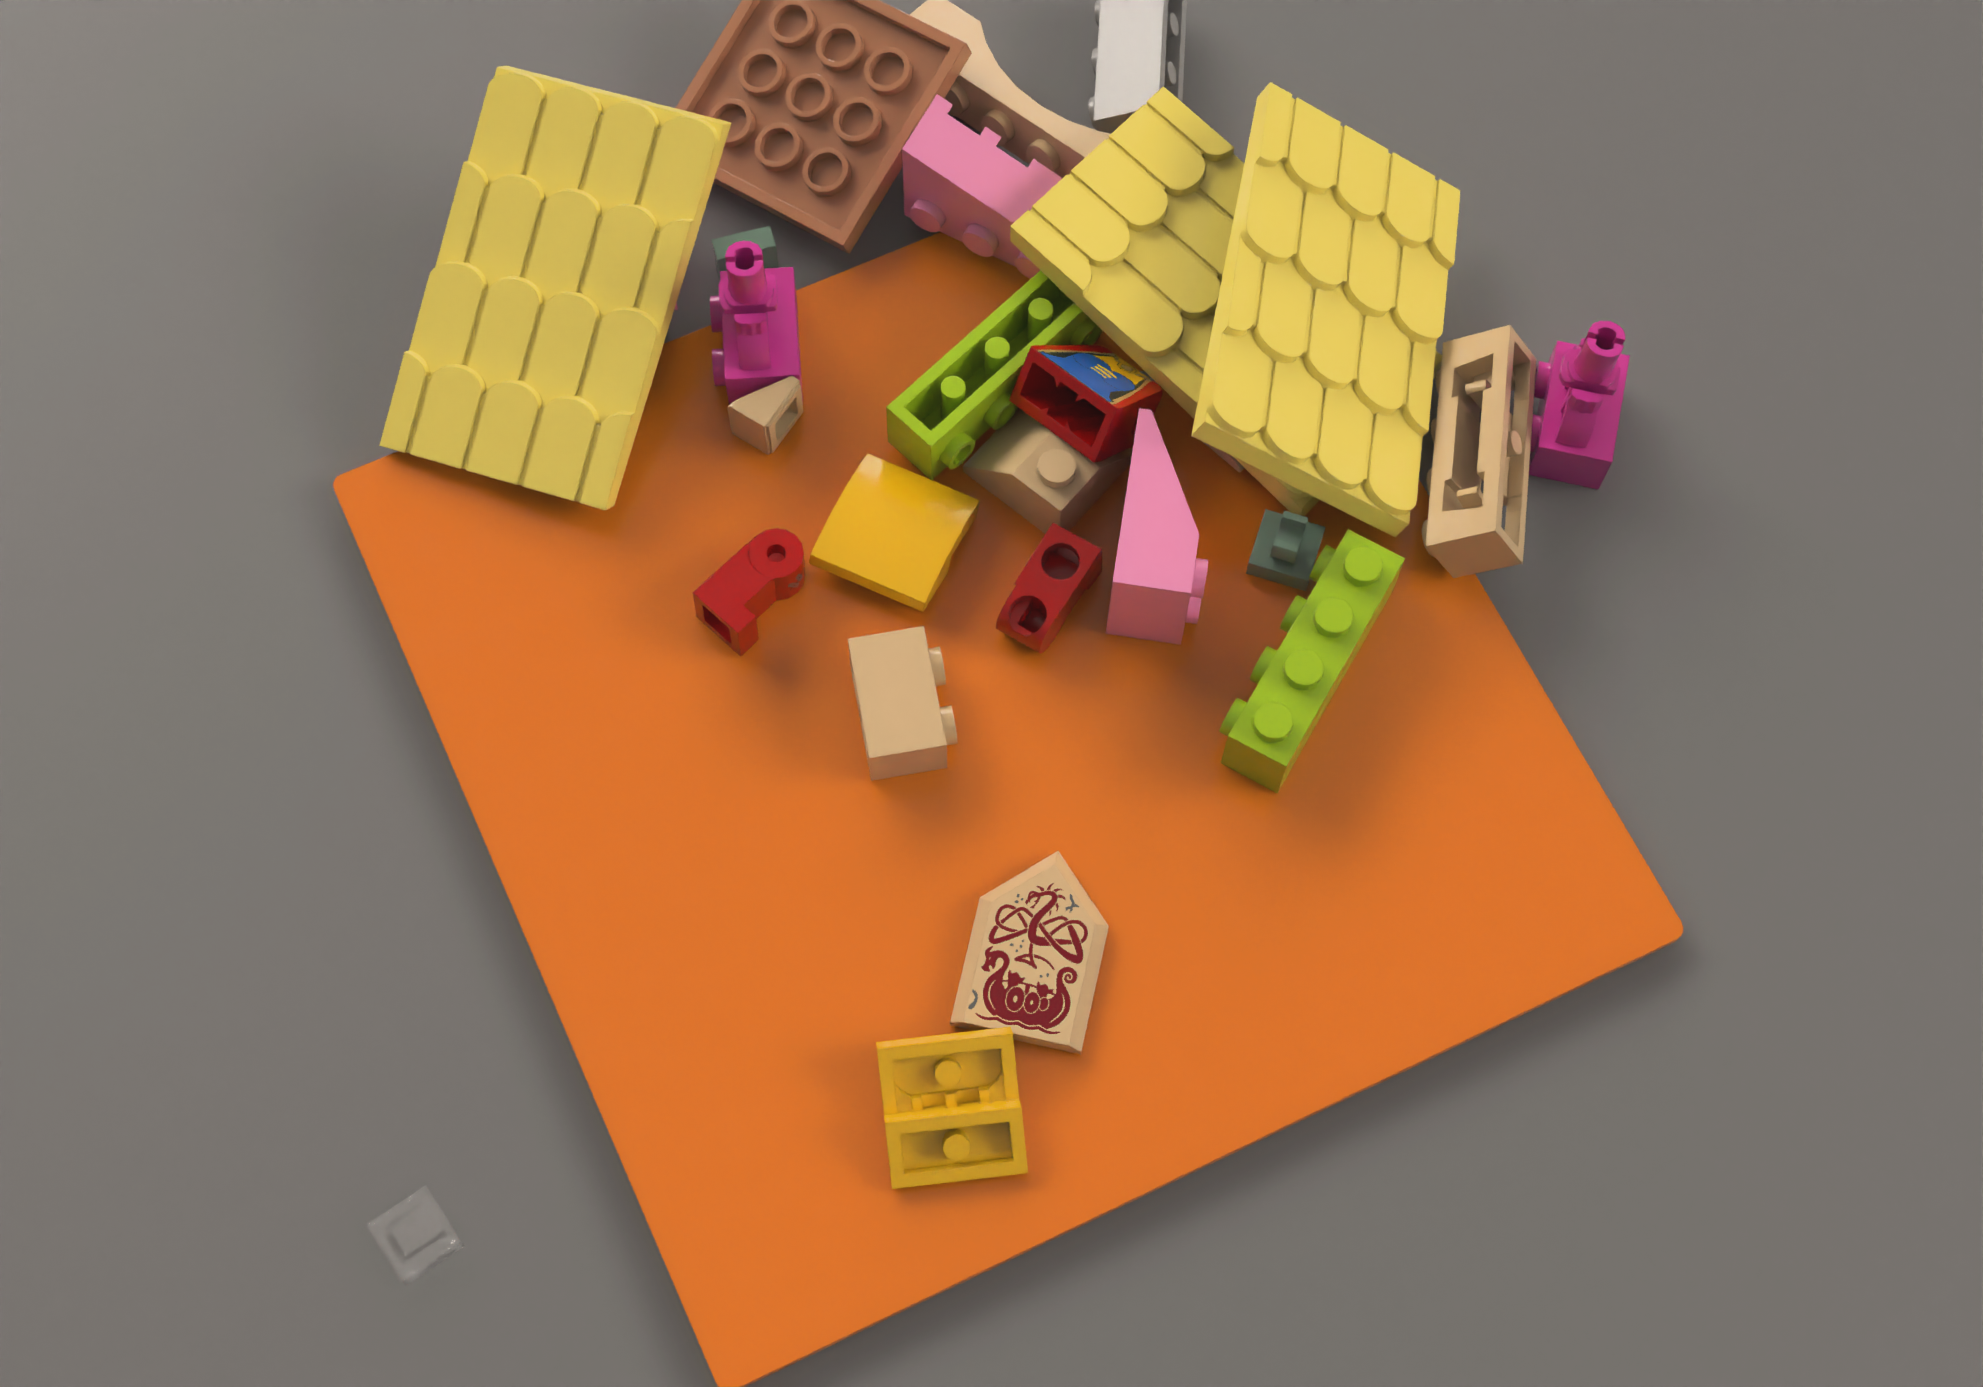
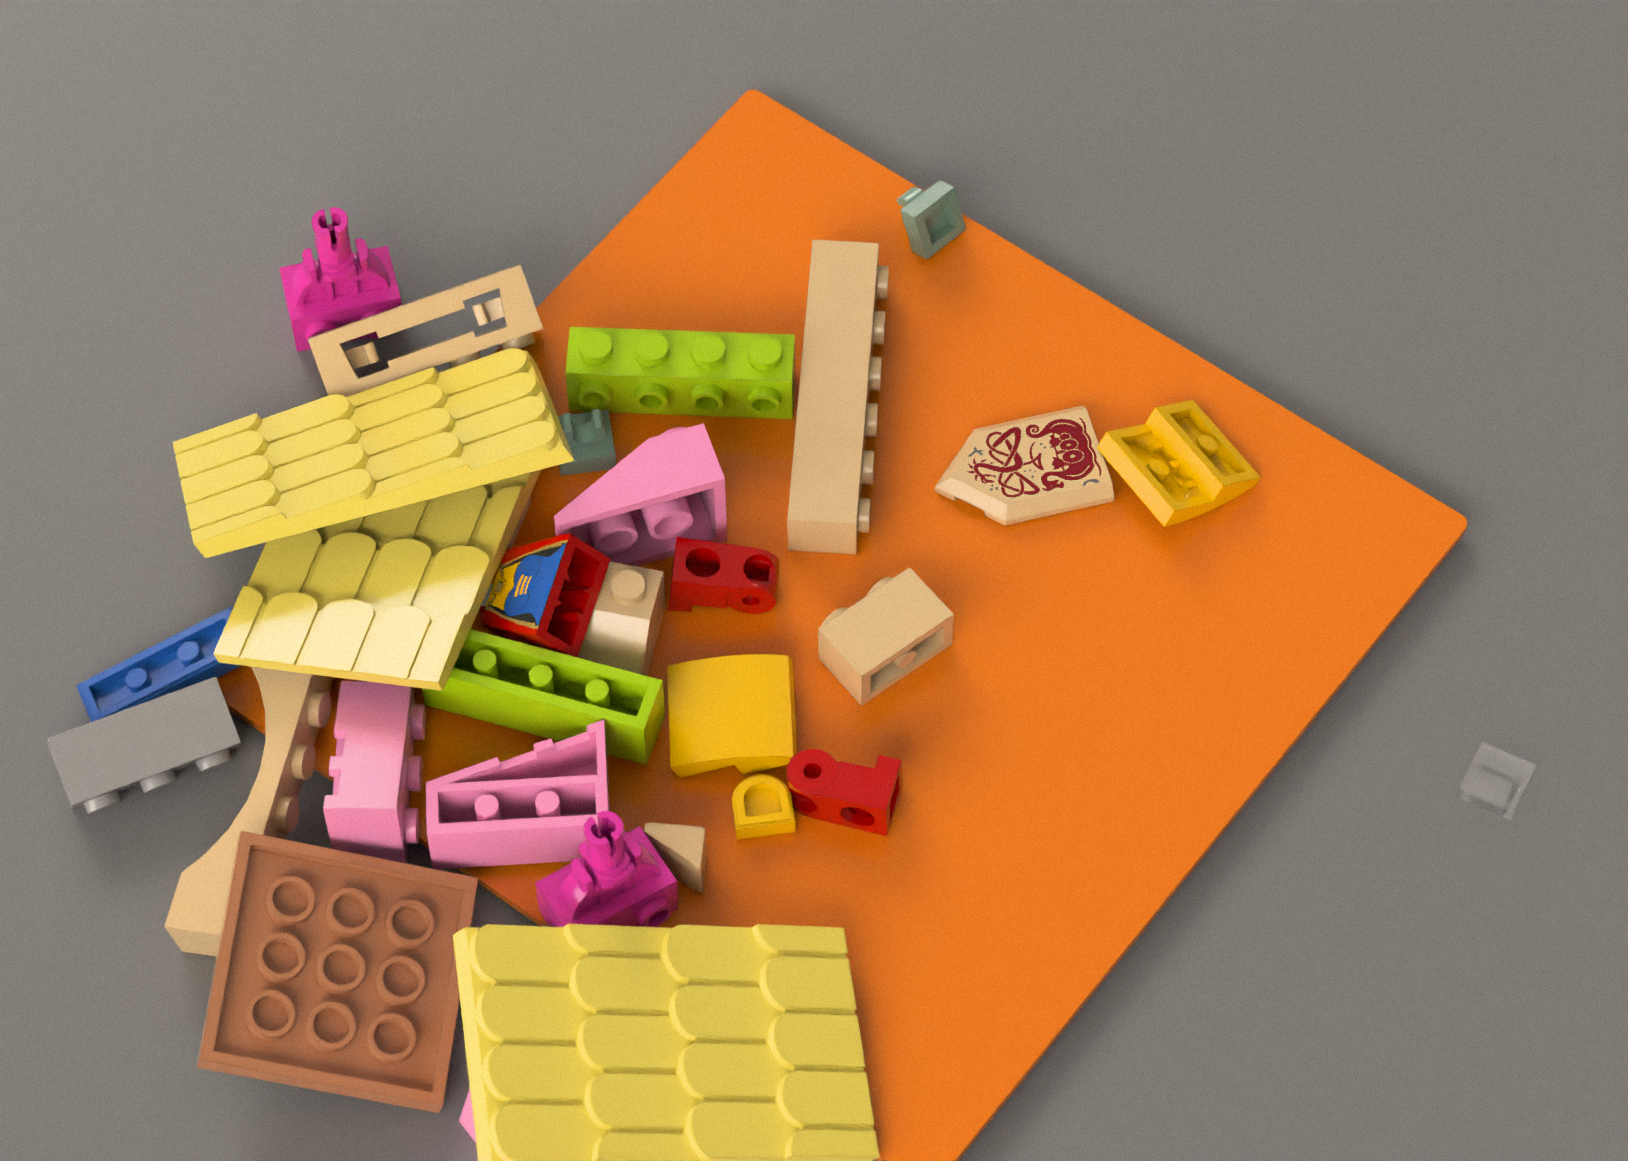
camera: 115 degrees left, 10 degrees down
(787, 509) = (762, 807): none -> yellow tile
(878, 304) = (519, 807): none -> bright pink wedge
(1214, 799) = (834, 398): none -> tan brick
(1216, 87) = (158, 670): none -> blue tile
(1398, 1010) = (931, 217): none -> sand green tile

